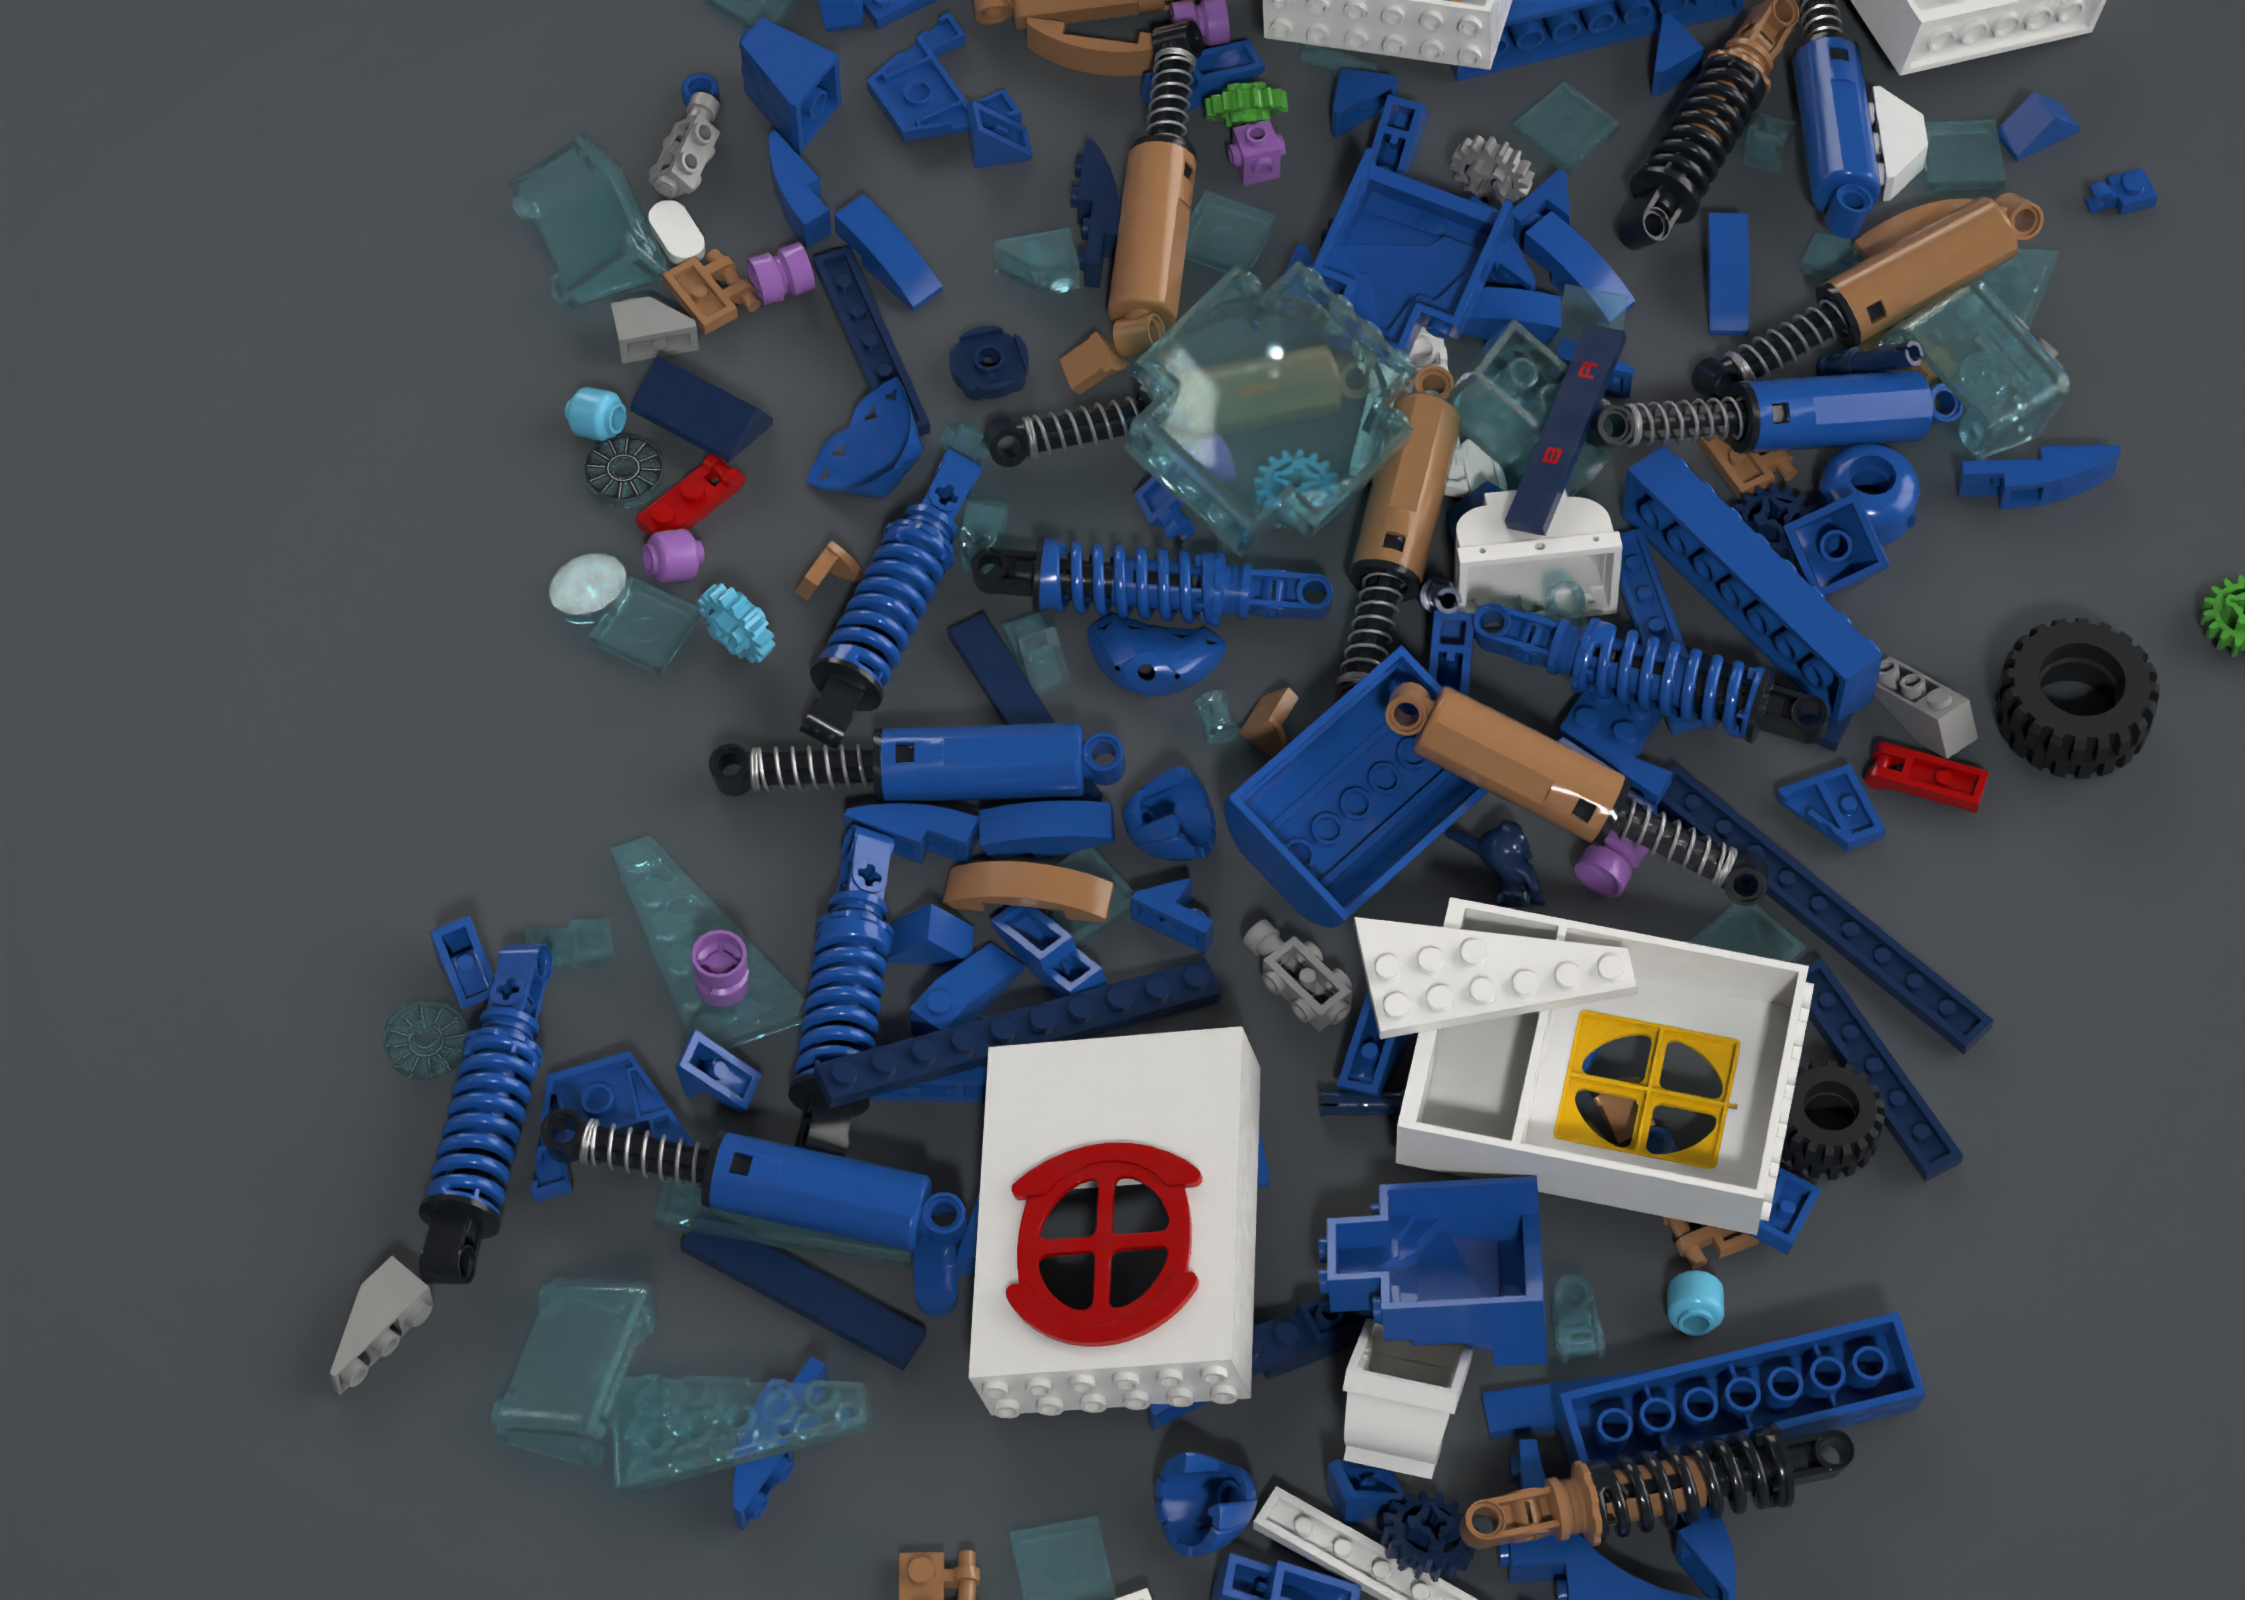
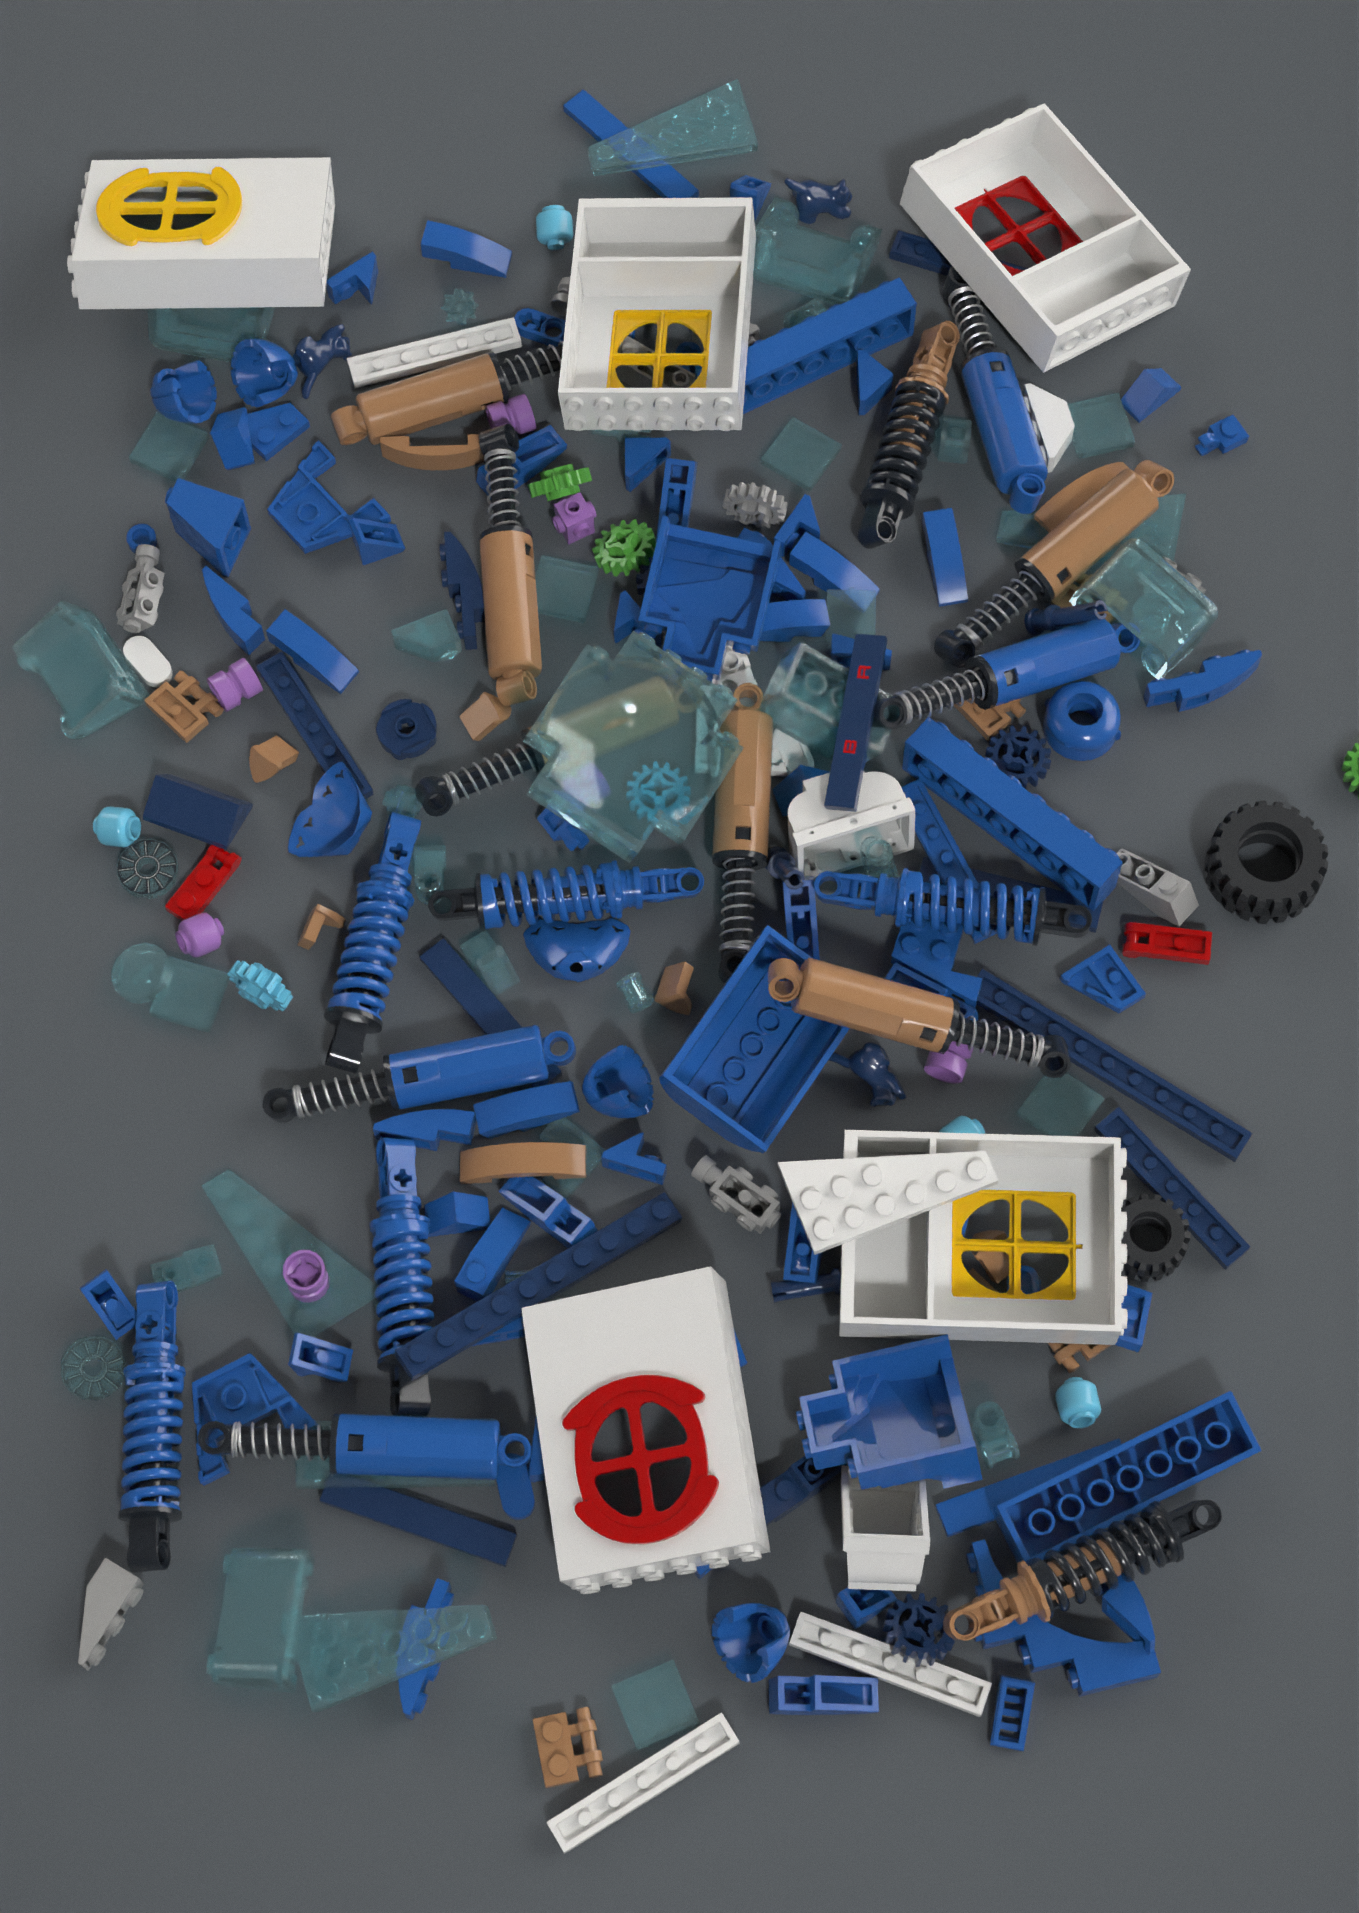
camera: 10 degrees left, 10 degrees up
(651, 329) = (144, 748): light grey slope -> none
(807, 365) = (270, 758): none -> medium nougat tile
(1311, 196) = (624, 547): none -> bright green gear
(1837, 546) = (1068, 771): blue slope -> none

